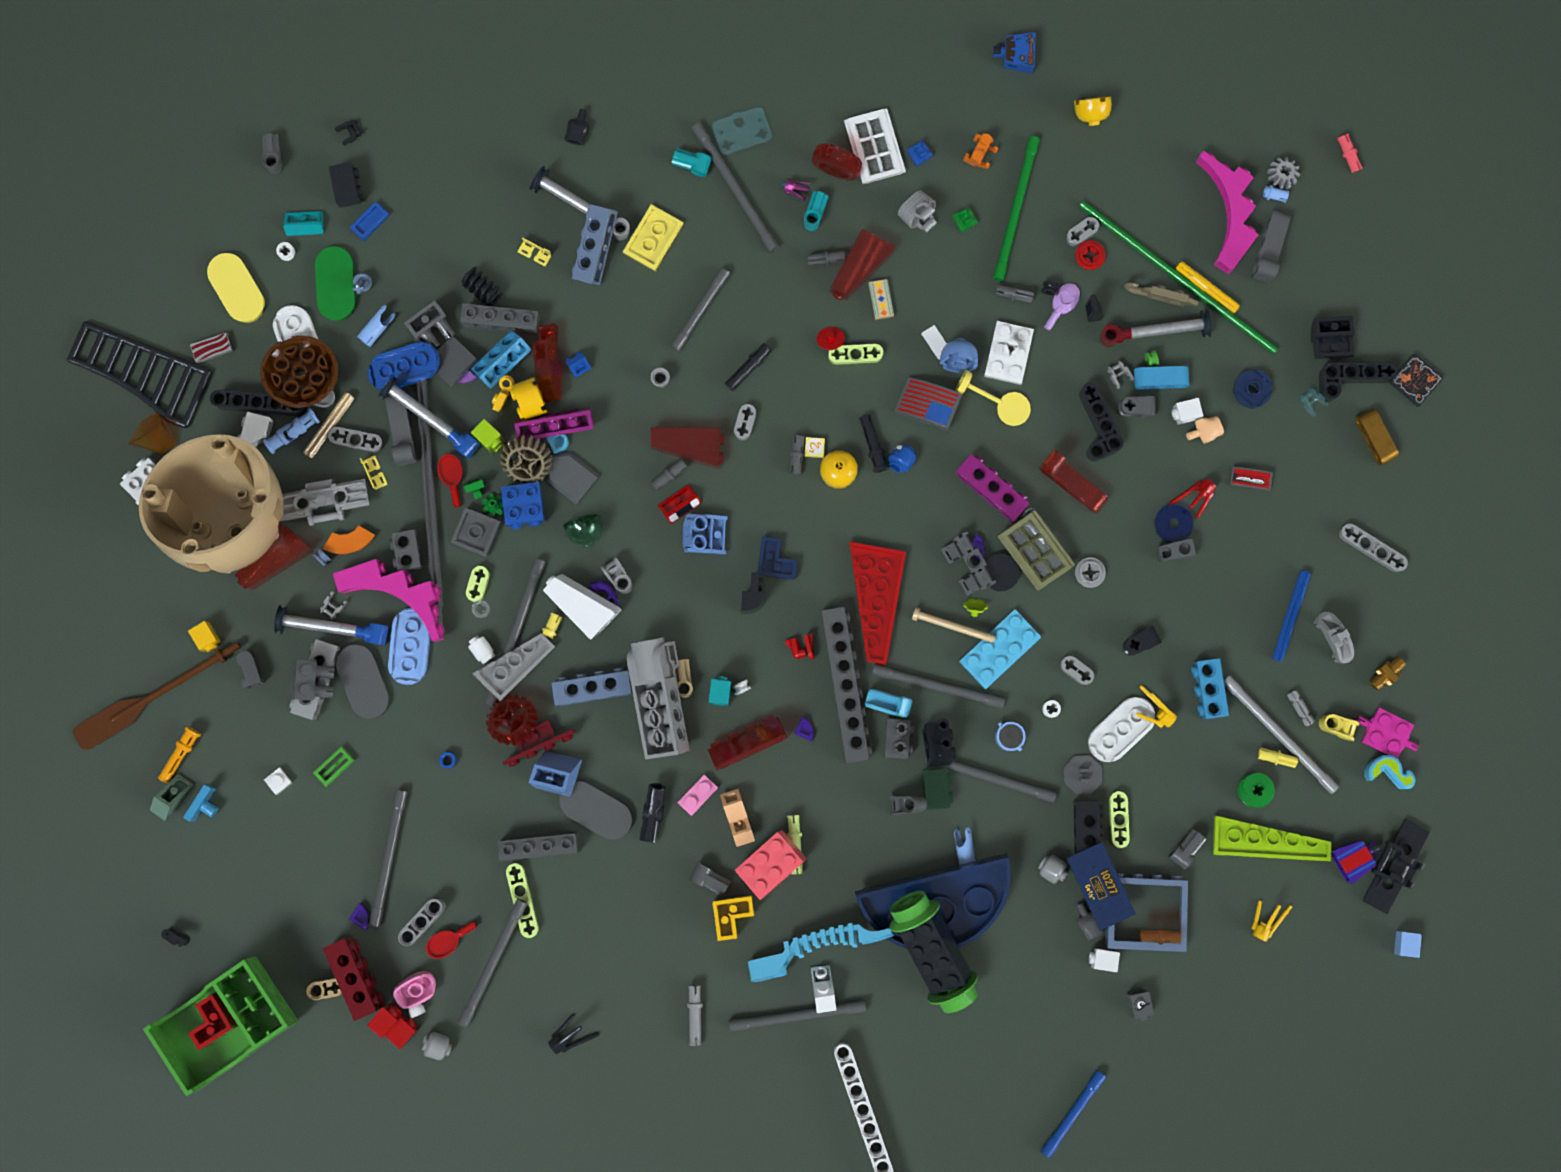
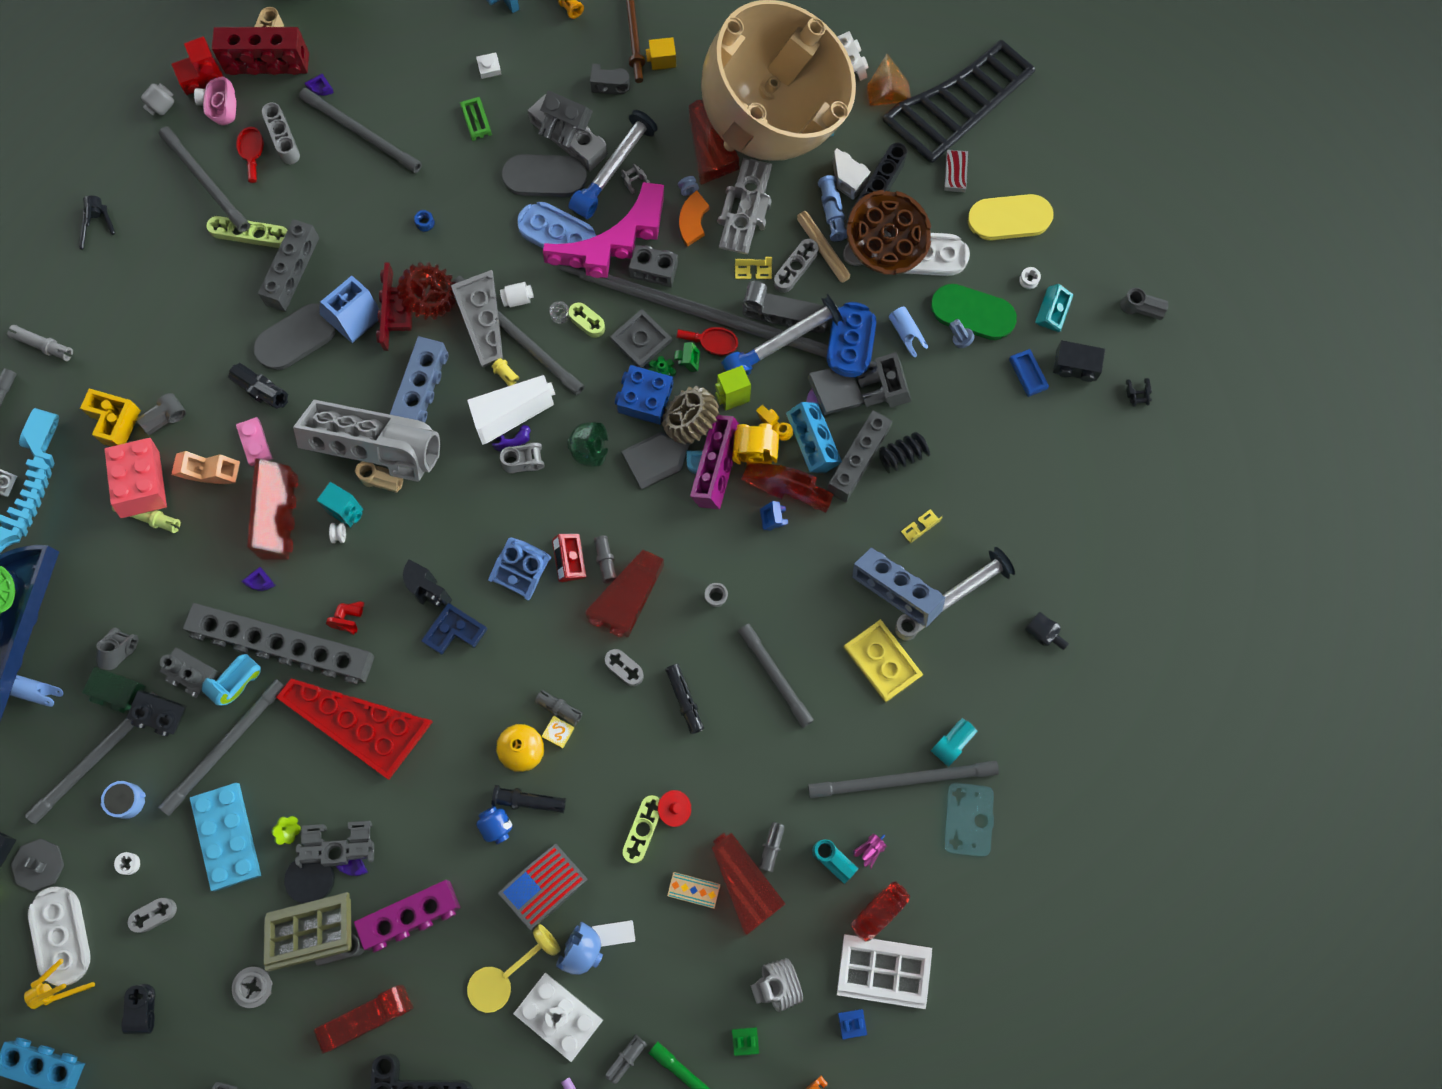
camera: 115 degrees right, 10 degrees down
(951, 625) = (276, 793): tan bar -> none

